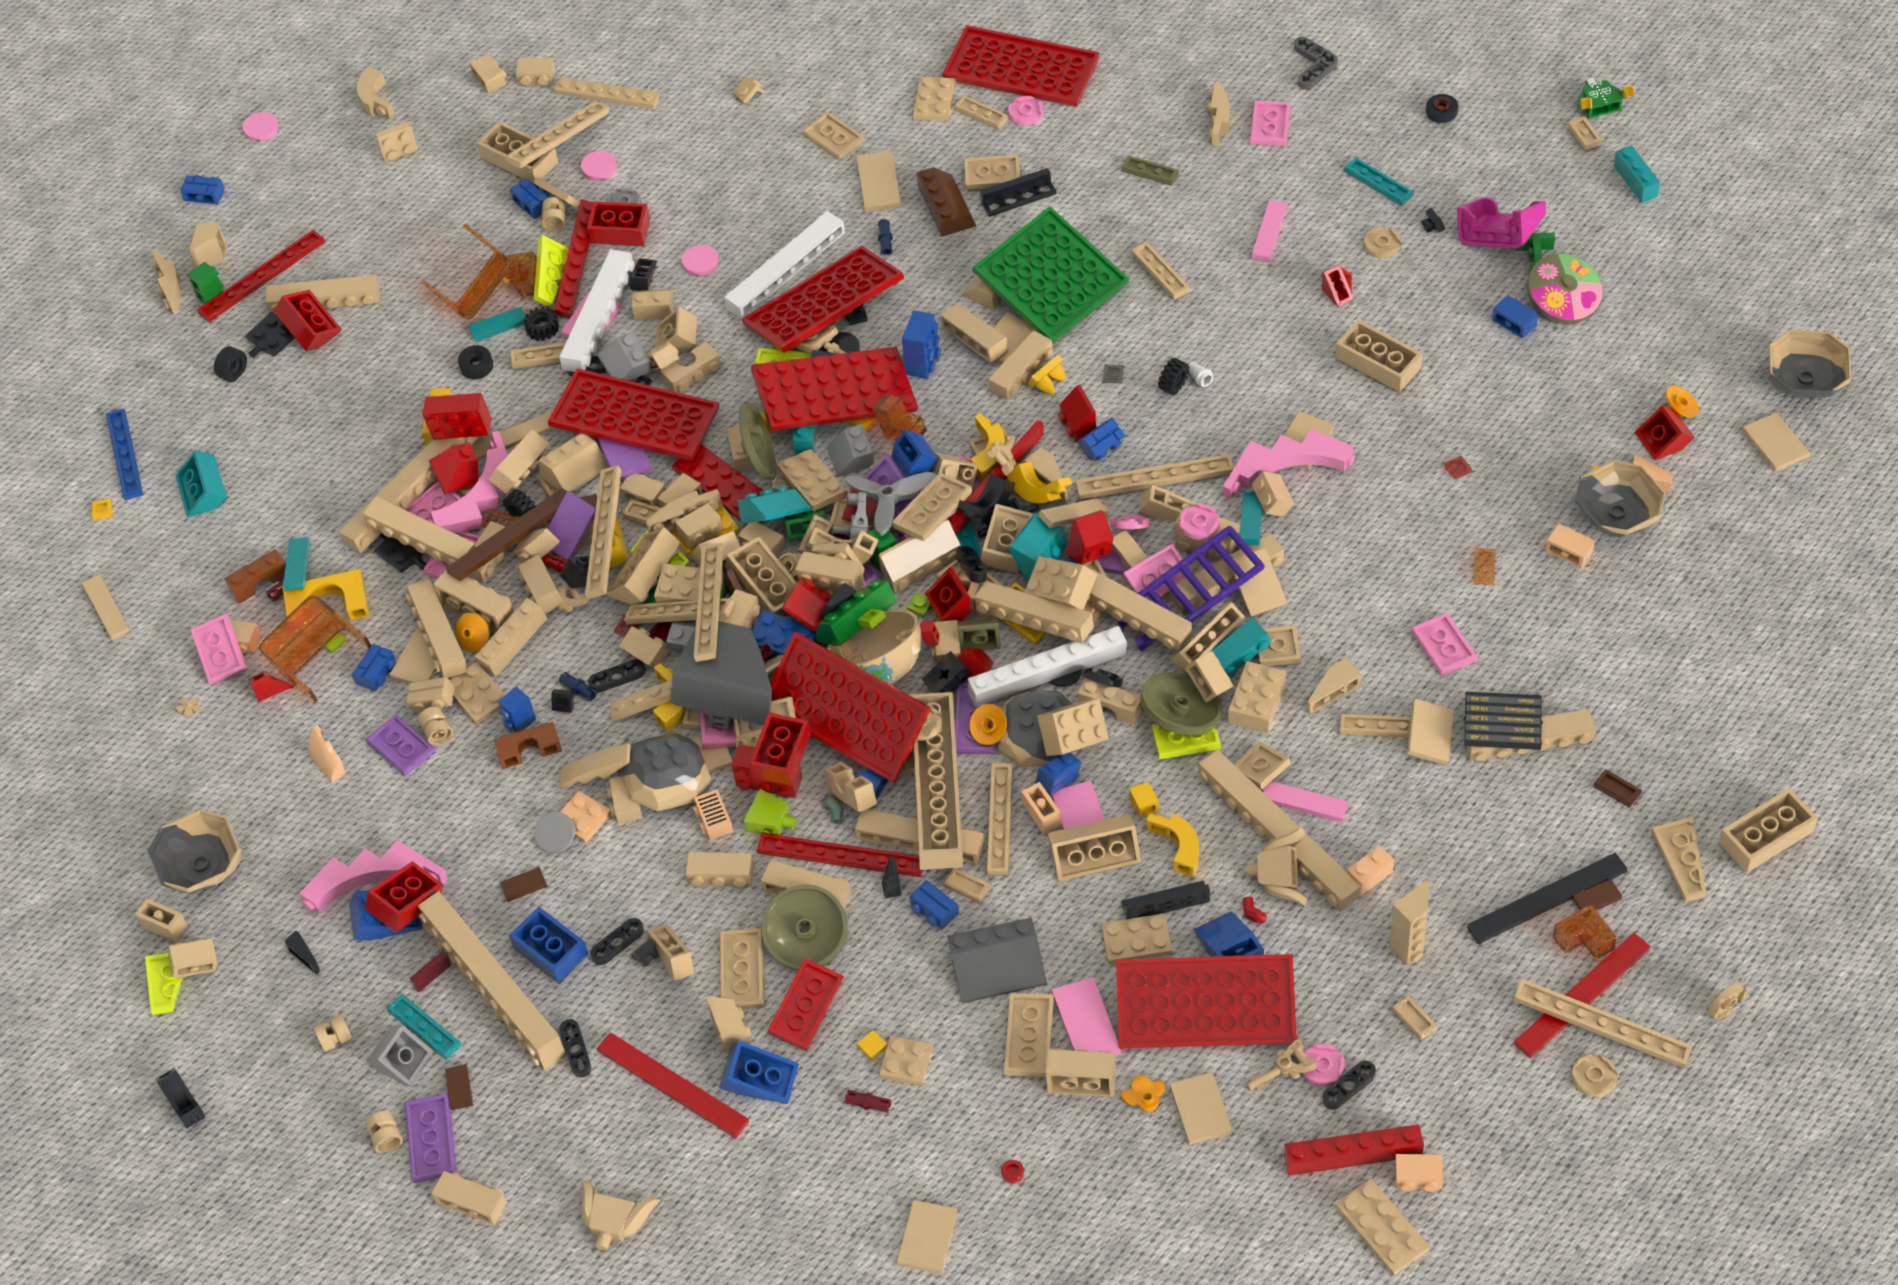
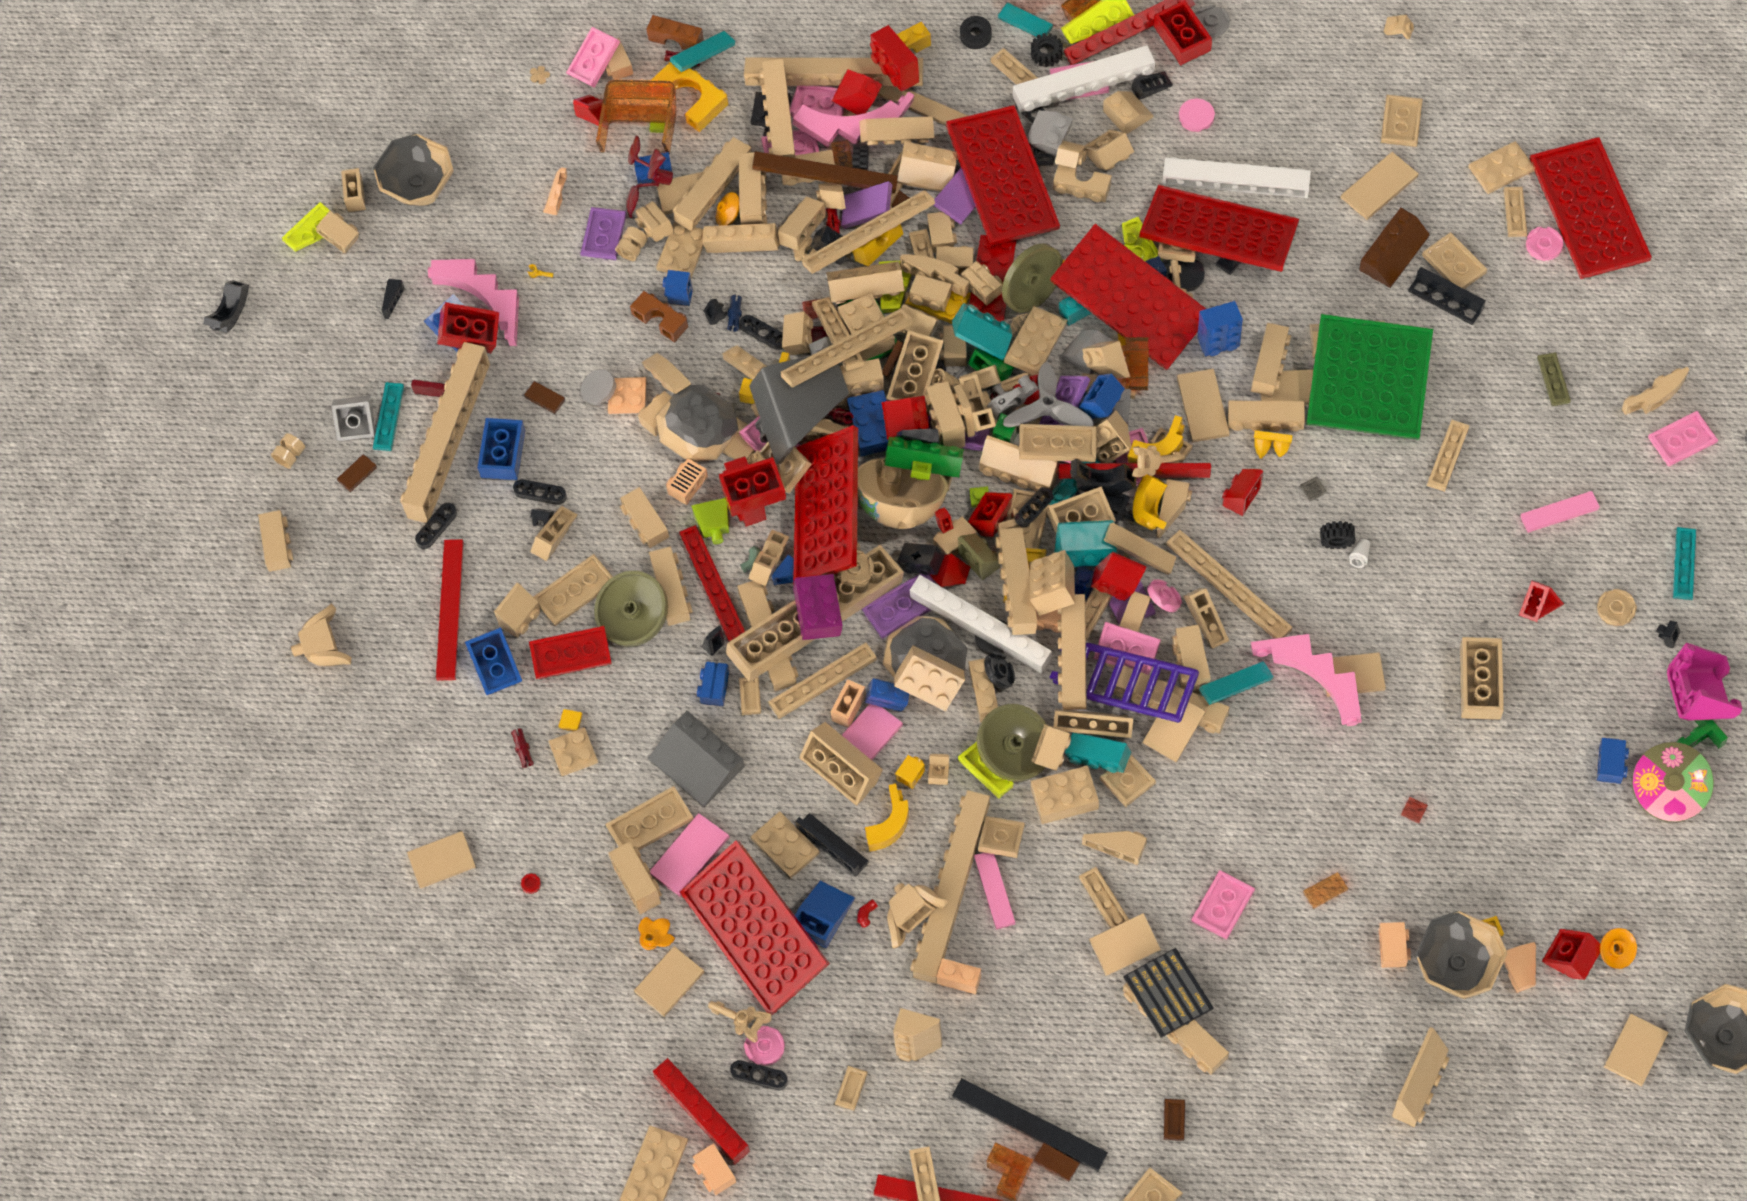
camera: 55 degrees right, 10 degrees up
(340, 1029) = (342, 363): tan wheel -> none
(386, 644) = (655, 173): none -> dark red plant
(390, 819) = (536, 272): none -> yellow hand
(430, 1137) = (306, 483): medium lavender tile -> none
(728, 483) = (983, 283): none -> tan brick
(881, 432) = (1106, 359): none -> tan slope
(885, 236) = (1323, 229): dark blue pin -> none
(941, 764) = (817, 607): none -> magenta brick
(968, 401) = (1203, 405): none -> tan tile
(981, 721) = (895, 616): light orange dish -> none
(1101, 439) = (1233, 522): blue brick -> none
(1159, 778) = (938, 769): none -> tan bracket
(1199, 522) = (1188, 646): bright pink tile -> none
(1272, 493) = (1273, 684): tan brick -> none
(1705, 592) = (1421, 1079): none -> tan slope

